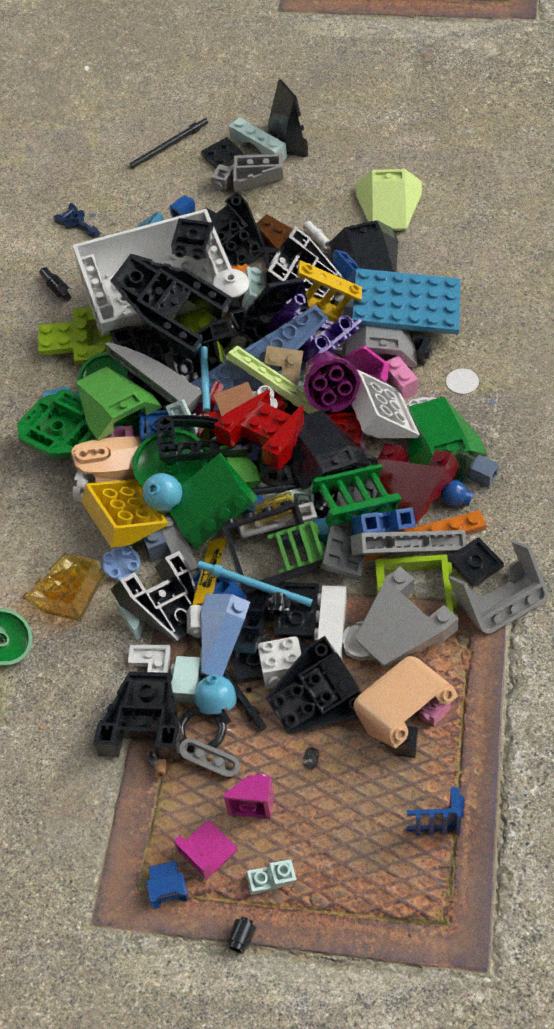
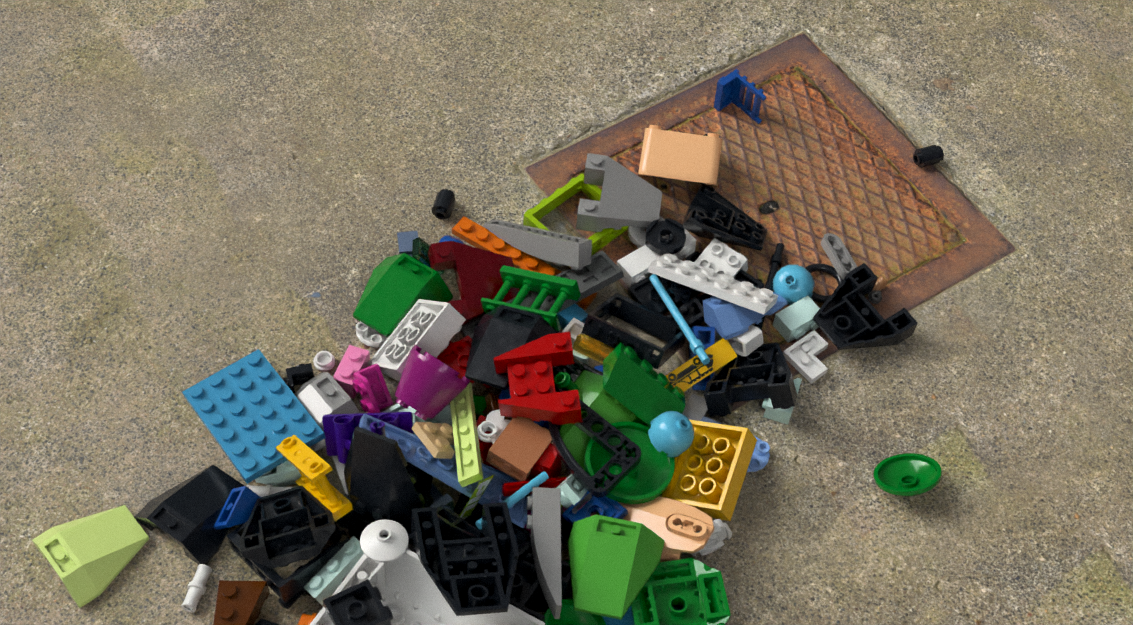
camera: 140 degrees left, 0 degrees up
(67, 587) = (814, 464): clear yellow wedge -> none
(166, 884) = (947, 218): blue piece -> none
(206, 849) = (901, 215): dark pink bracket -> none
(251, 797) = (842, 204): dark pink slope -> none
(255, 448) = (564, 382): none -> green pin
(255, 617) = (714, 284): none -> white plate
(271, 878) = (870, 168): light aqua slope -> none
(313, 547) = (607, 297): bright green plate -> none
(341, 620) = (665, 246): none -> black plate
(383, 522) = (553, 262): blue arch -> none
(426, 372) = (324, 361): none -> white plate
(462, 381) = (308, 331): white sticker -> none
(475, 562) = (506, 202): black plate -> none
(508, 517) = (443, 204): none -> black brick
(509, 601) = (520, 165): light grey windscreen -> none

